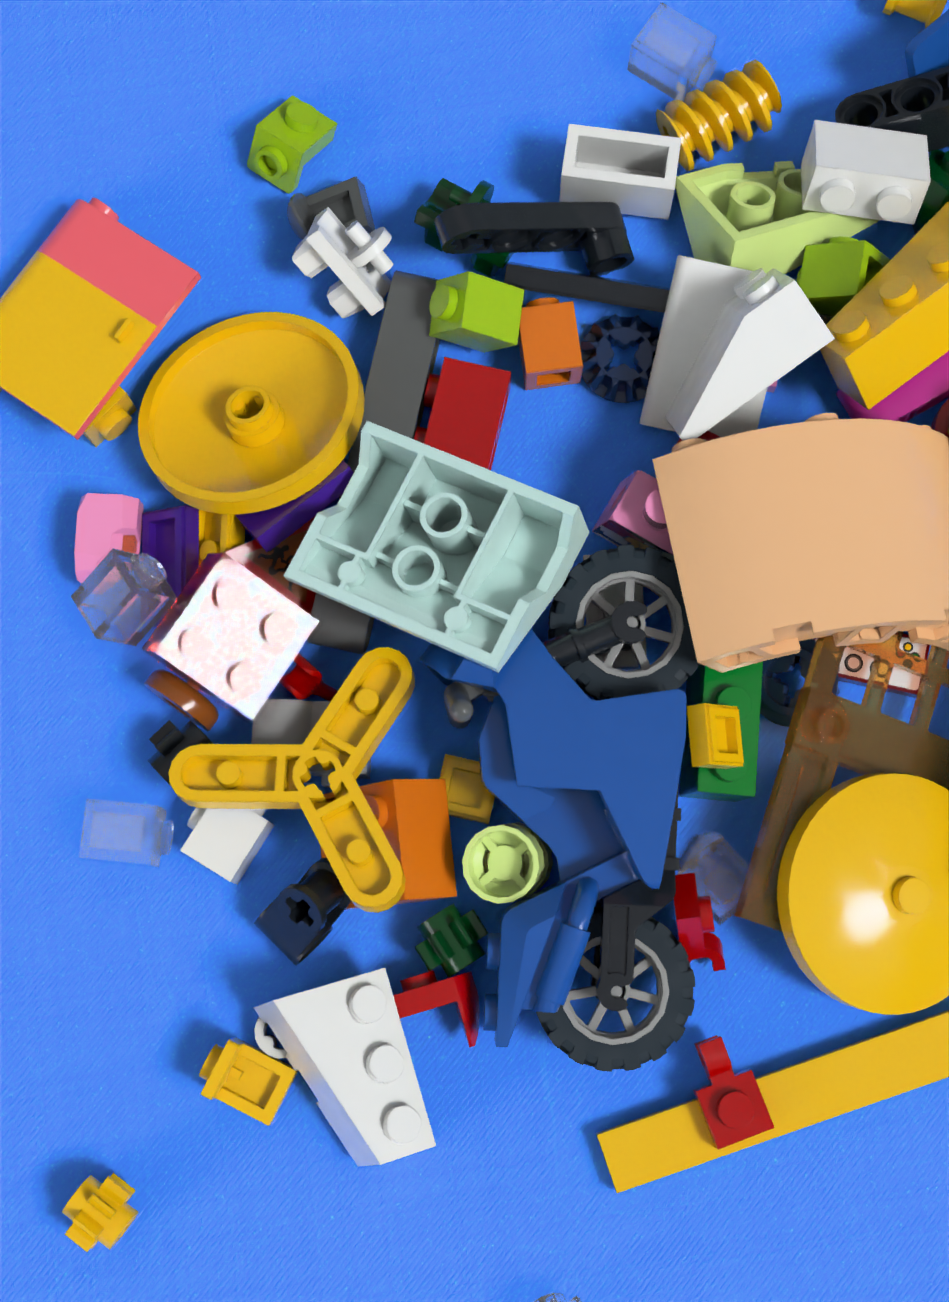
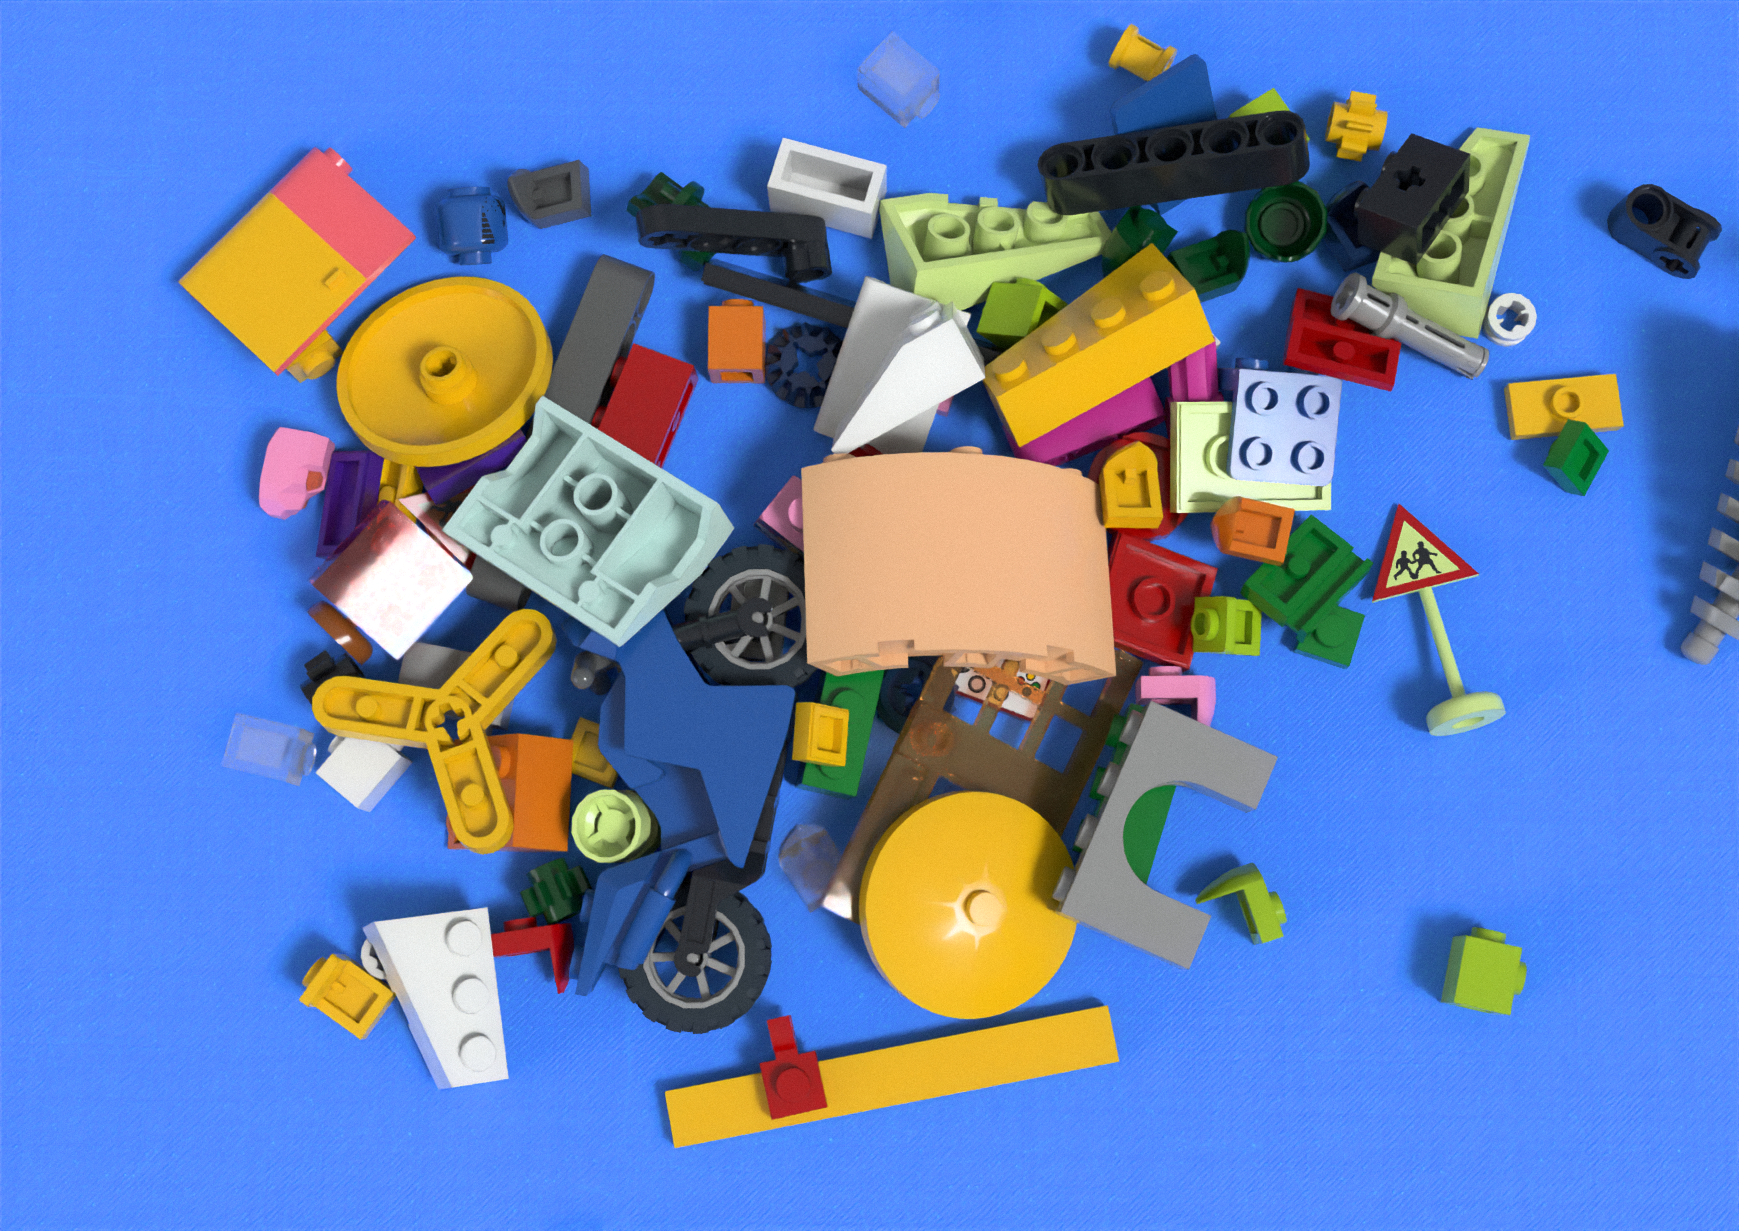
camera: 10 degrees right, 0 degrees up
(100, 1212) = (193, 1097): yellow gear -> none
(124, 597) = (300, 529): clear brick -> none
(253, 258) = (472, 224): none -> blue head
(288, 141) = (523, 116): lime bracket -> none
(304, 912) = (421, 849): black piece -> none
(306, 680) = (456, 630): red hand -> none
(353, 257) = (562, 239): white hips -> none
(476, 312) = (668, 304): lime brick -> none
(696, 922) = (781, 907): red plate -> none
(719, 111) = (934, 145): yellow piece -> none
(865, 172) = (1055, 220): white piece -> none

